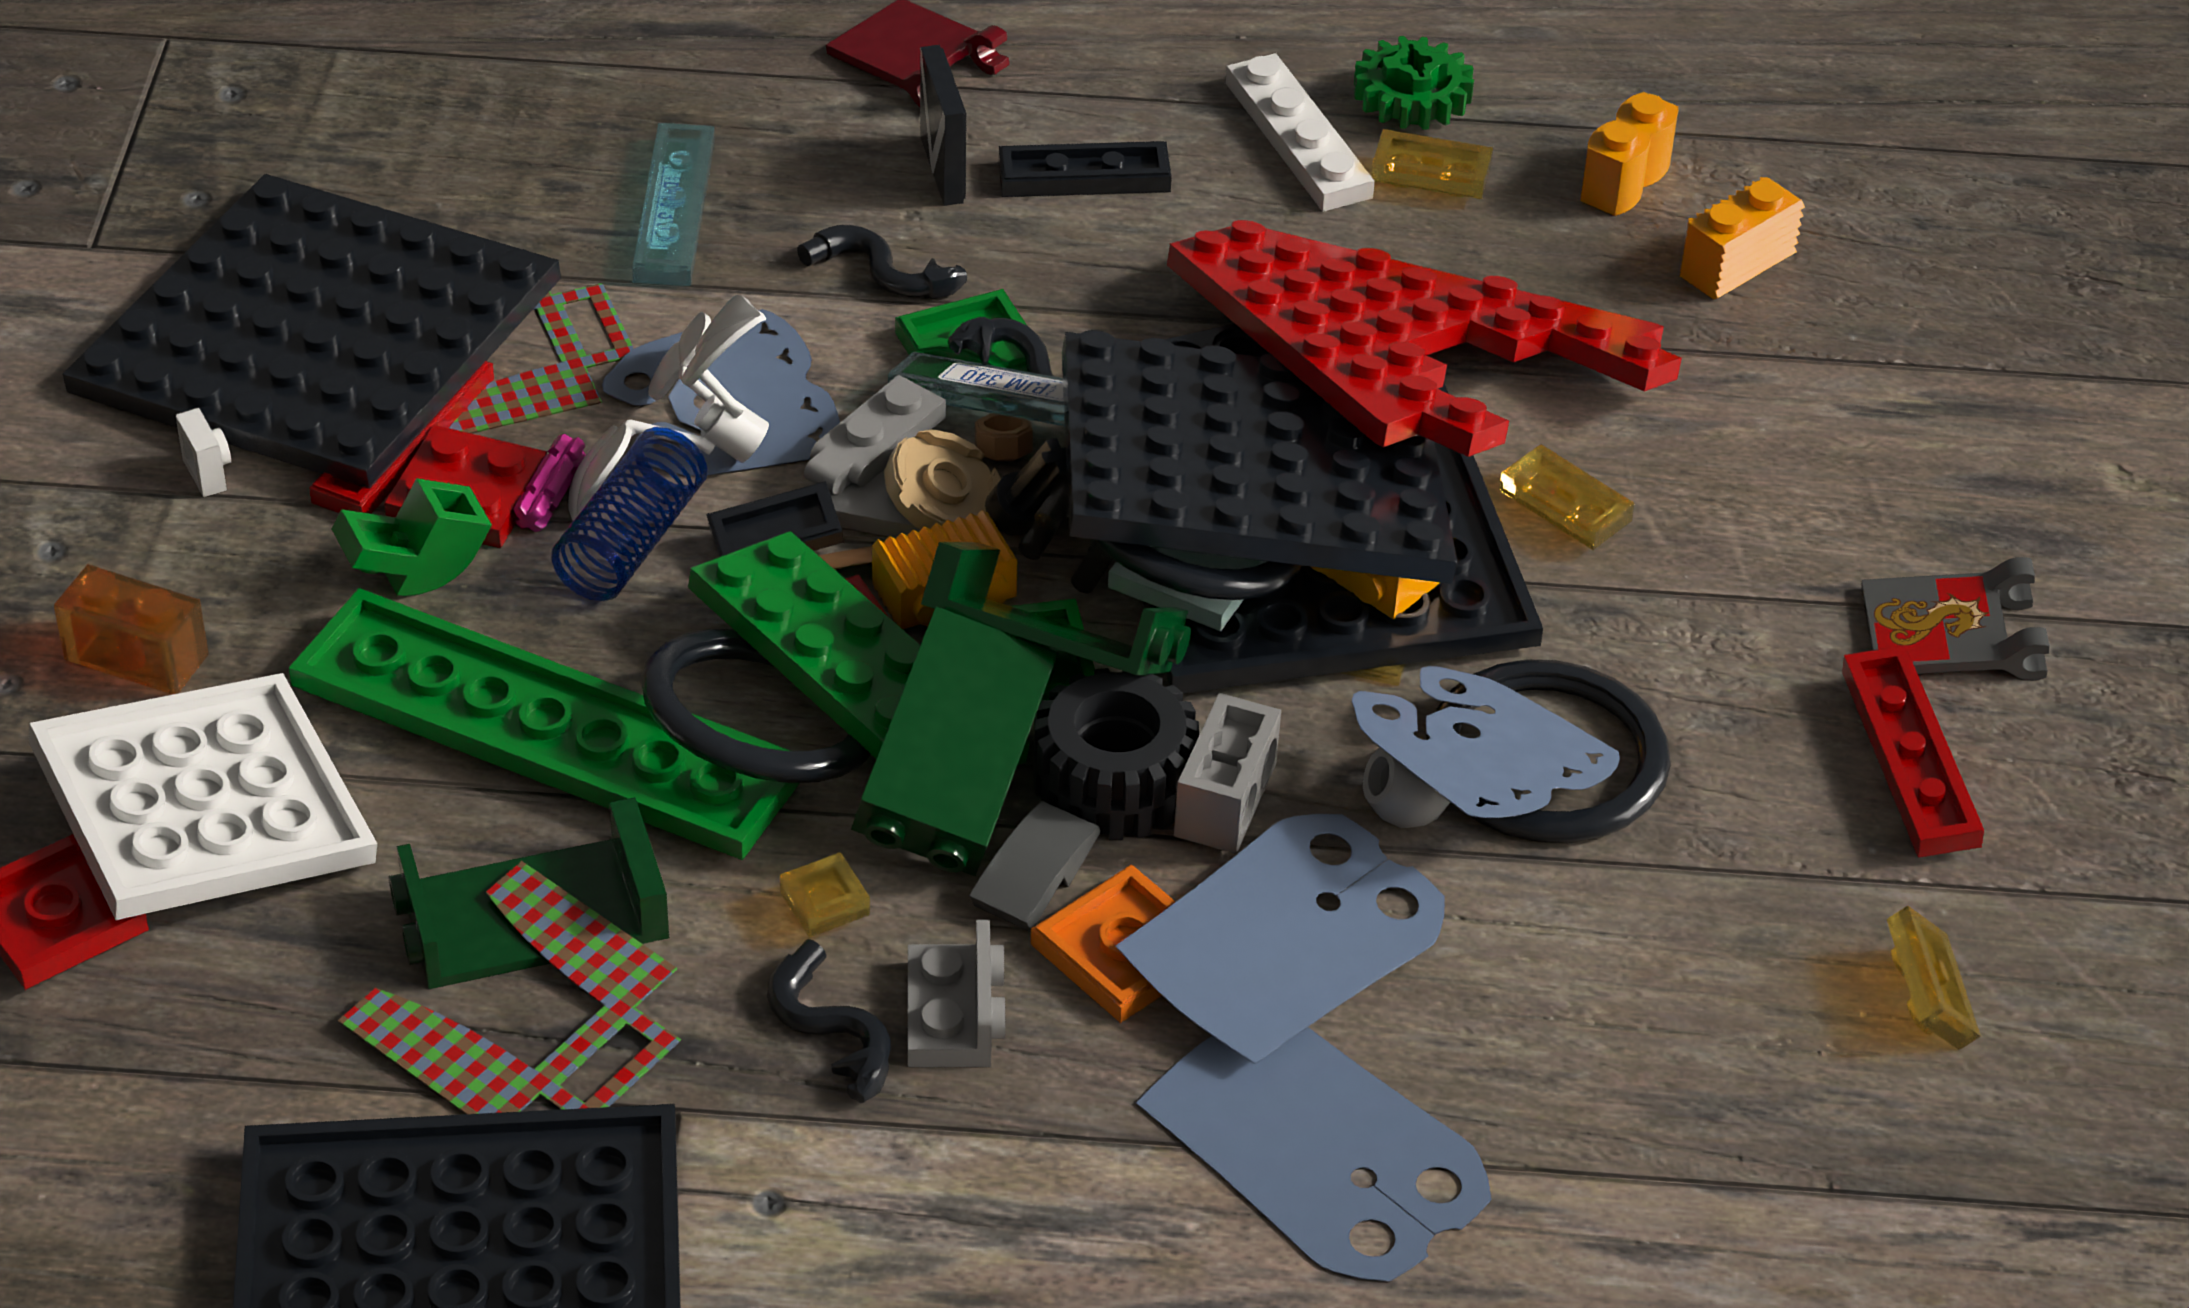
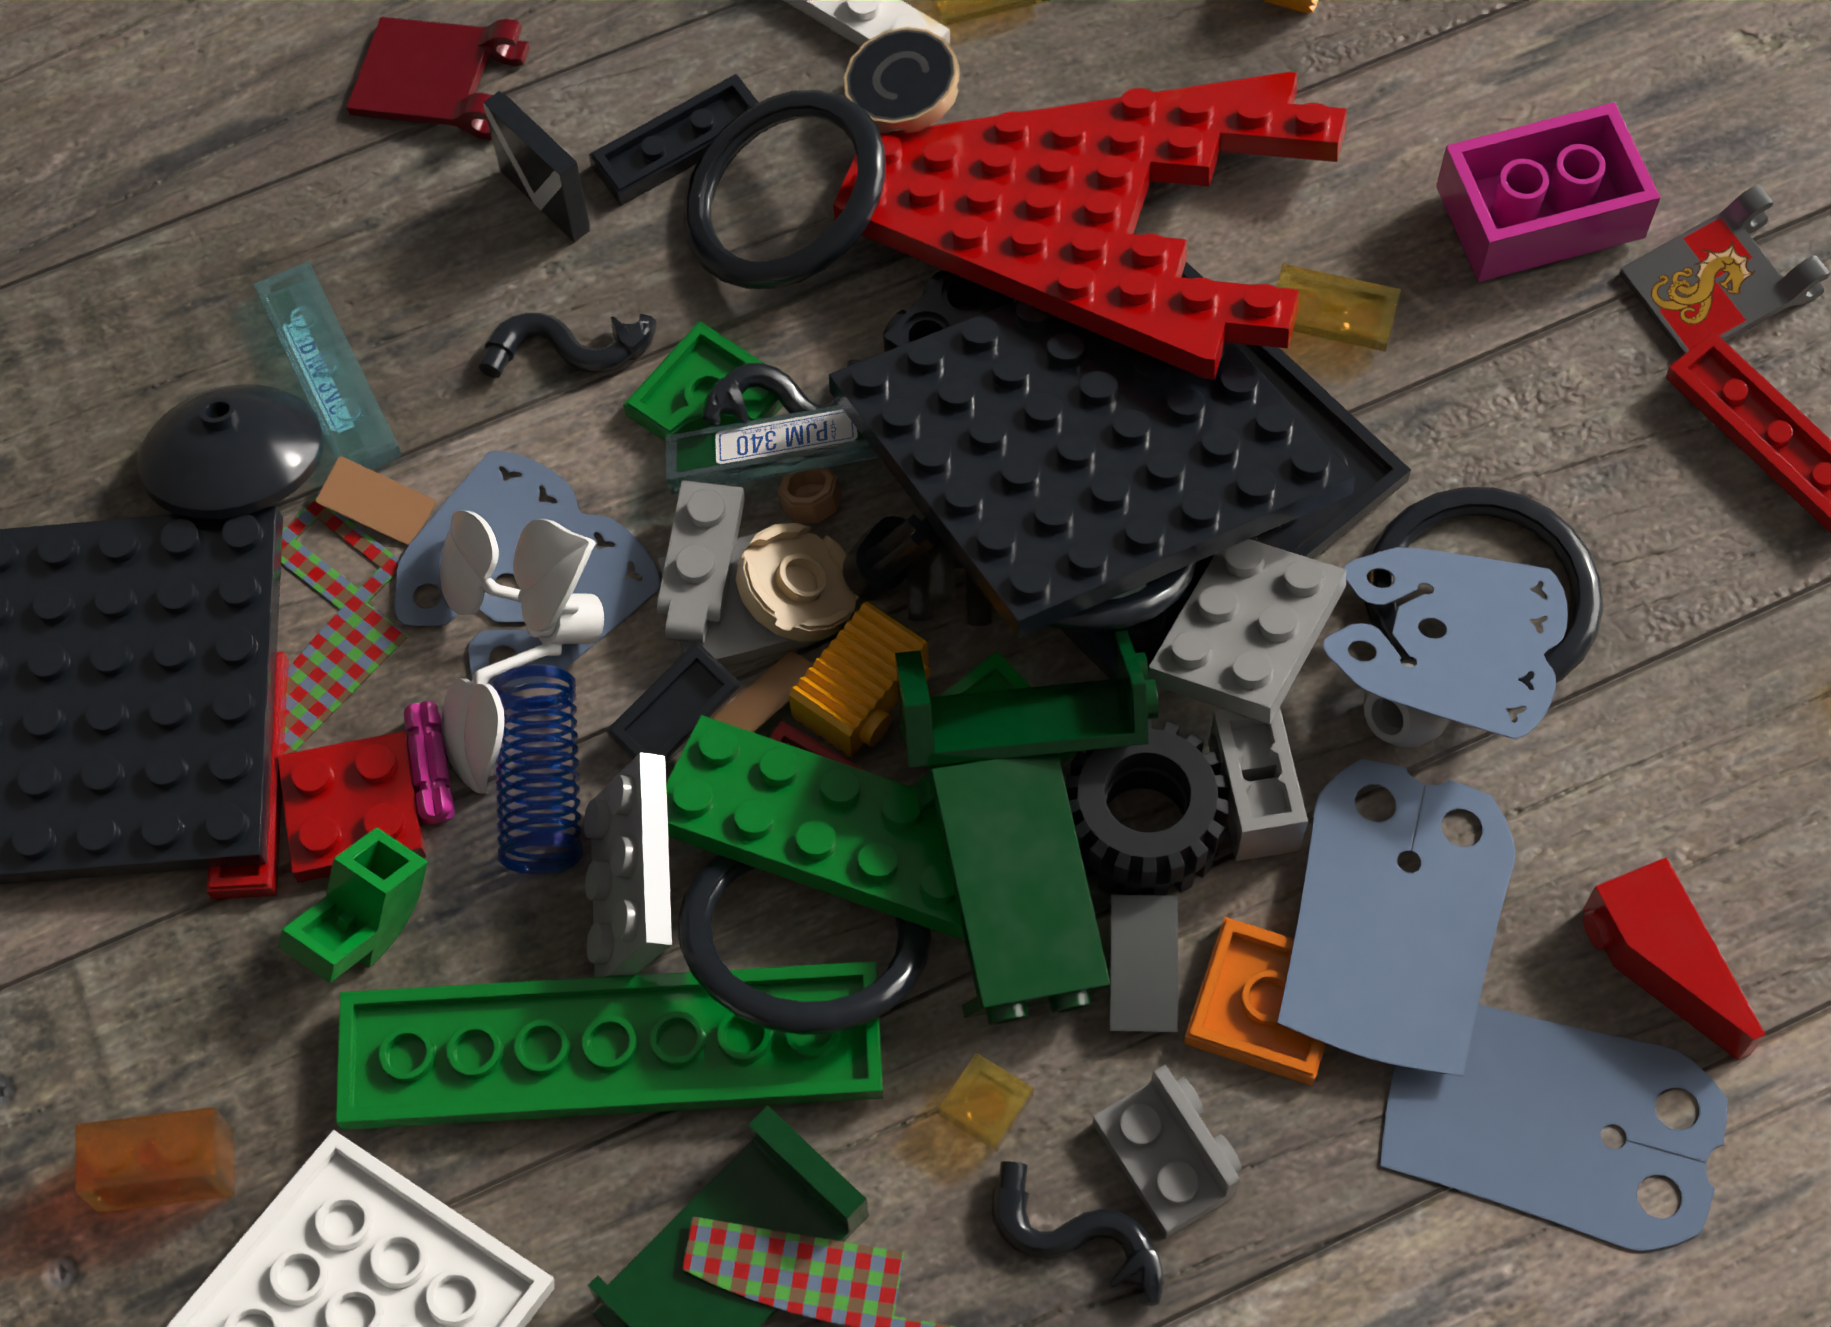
camera: 25 degrees left, 20 degrees up
(203, 451) = (79, 906): white plate -> none
(552, 212) = (230, 451): none -> black dish
(643, 299) = (375, 500): none -> medium nougat sticker
(654, 584) = (629, 869): none -> light grey plate
(1154, 259) = (828, 246): none -> black wedge
(1297, 653) = (1248, 628): none -> light grey plate
(1300, 192) = (903, 79): none -> black tile
(1507, 1054) = (1665, 949): none -> red slope
(1822, 485) = (1547, 191): none -> dark pink brick

